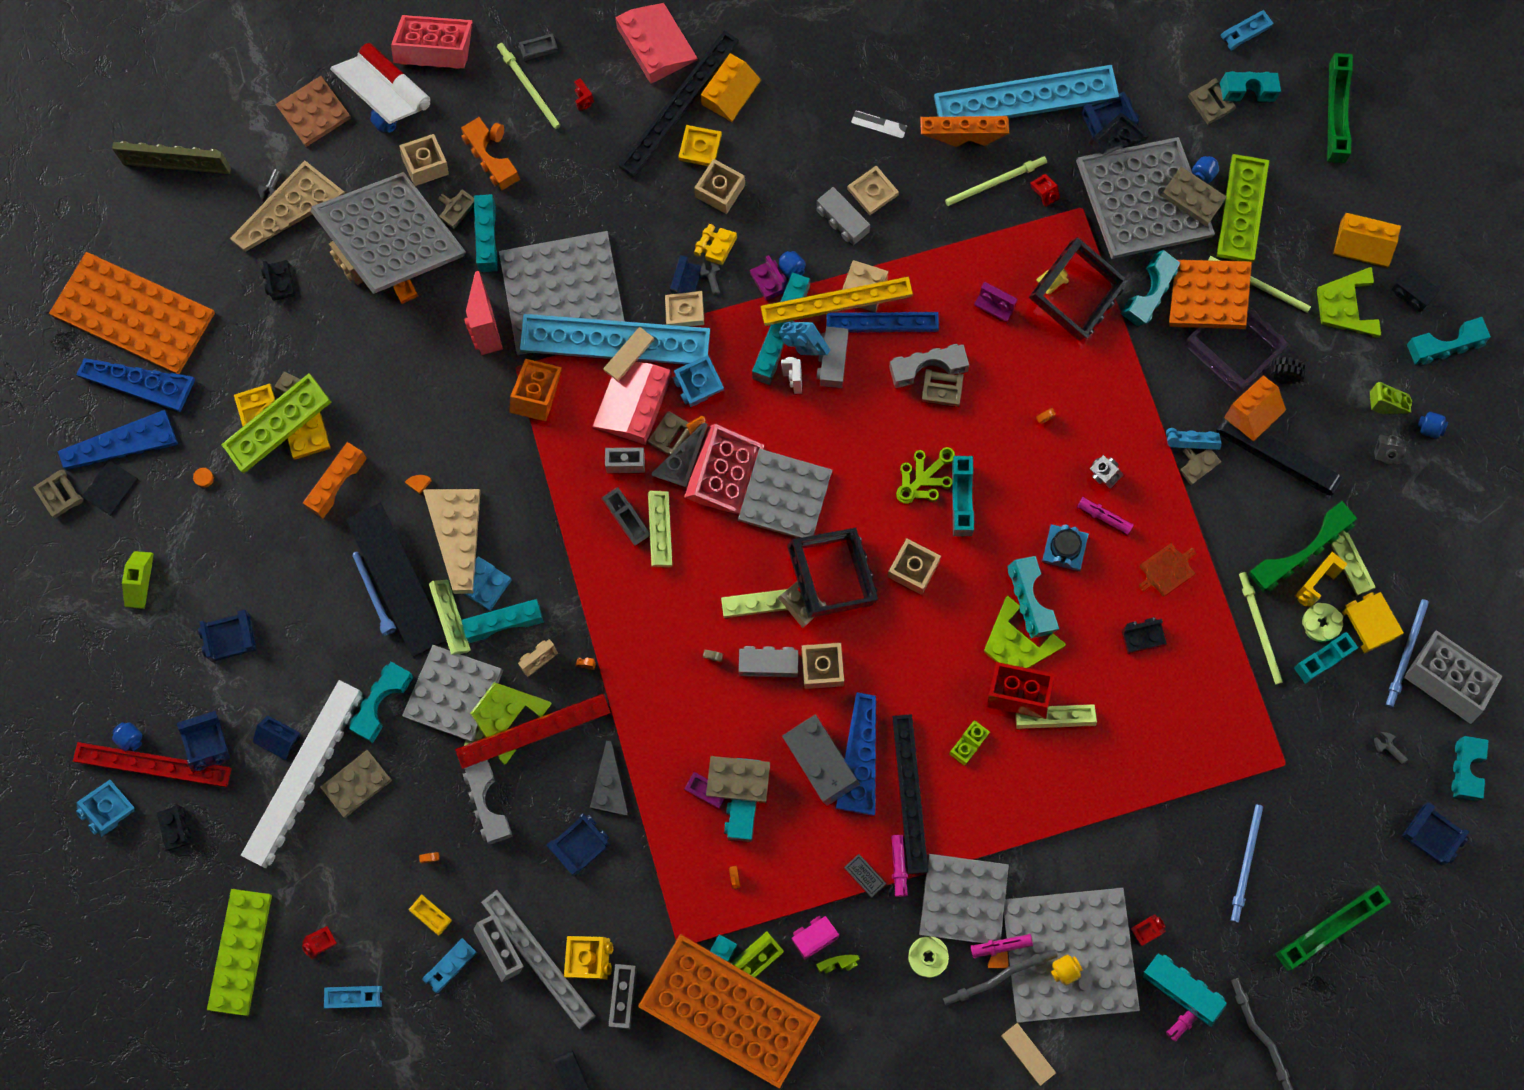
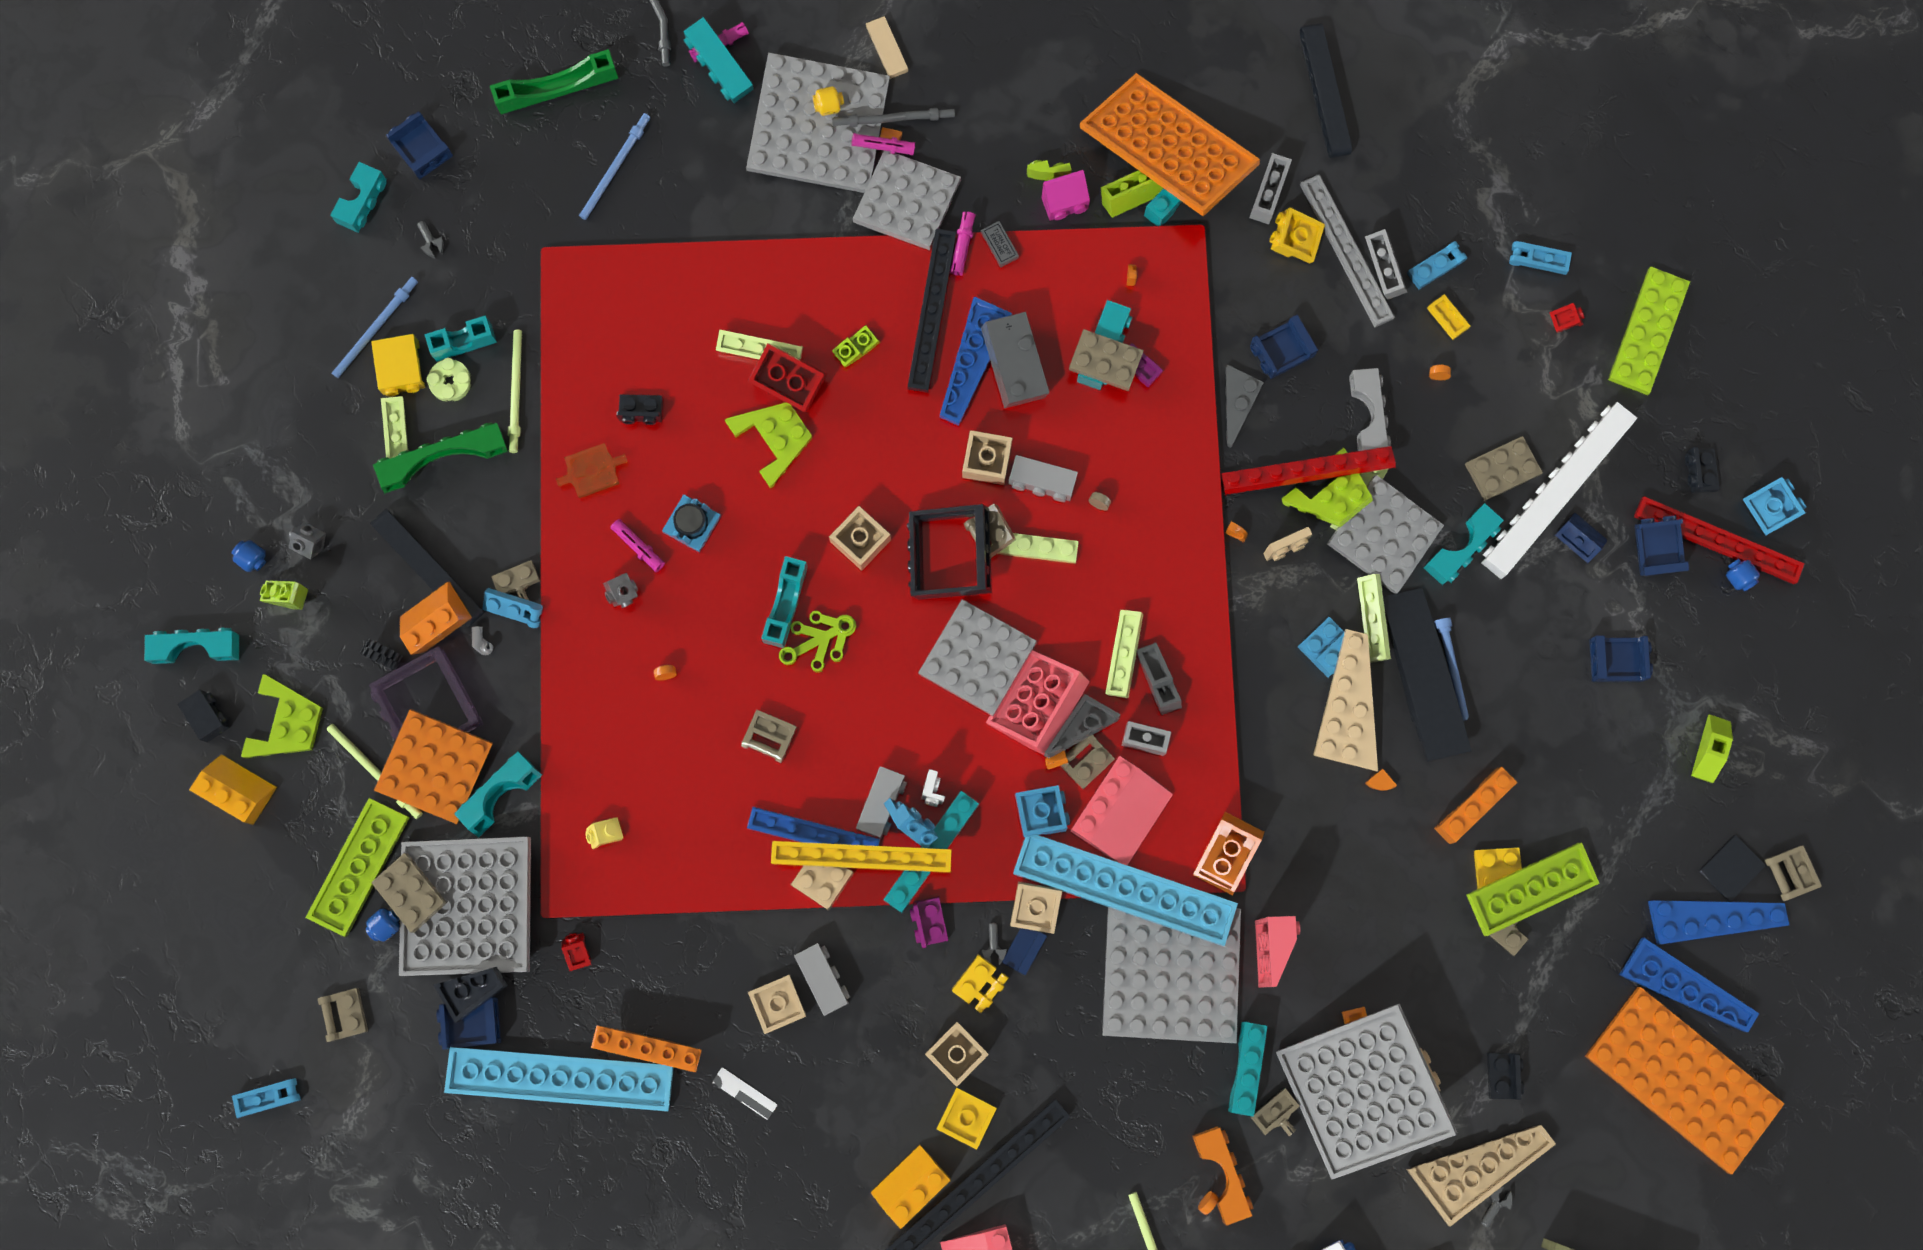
camera: 170 degrees left, 5 degrees up
(203, 477) = (1624, 851): orange tile -> none
(253, 402) = (1554, 924): yellow wing -> none
(424, 160) = (1304, 1185): tan brick -> none
(486, 624) = (1317, 596): teal arch -> none
(585, 96) = (1092, 1230): red bracket -> none
(628, 354) = (1113, 863): tan tile -> none
(791, 262) = (897, 932): blue head -> none
(940, 956) = (960, 145): yellowish green plate -> none
(951, 359) = (804, 766): light grey arch -> none
(996, 302) = (679, 819): magenta bracket -> none
(1027, 167) = (586, 986): yellowish green bar -> none
(1037, 618) = (745, 499): teal arch -> none
(1098, 263) = (600, 830): black window -> none
(1149, 929) = (733, 126): red bracket -> none
(1210, 405) = (479, 643): none -> light grey arm
(1265, 85) = (273, 1014): teal arch -> none
(1332, 567) = (438, 420): yellow panel -> none
(1338, 125) = (212, 929): green arch -> none
(1453, 677) = (337, 289): light grey slope -> none

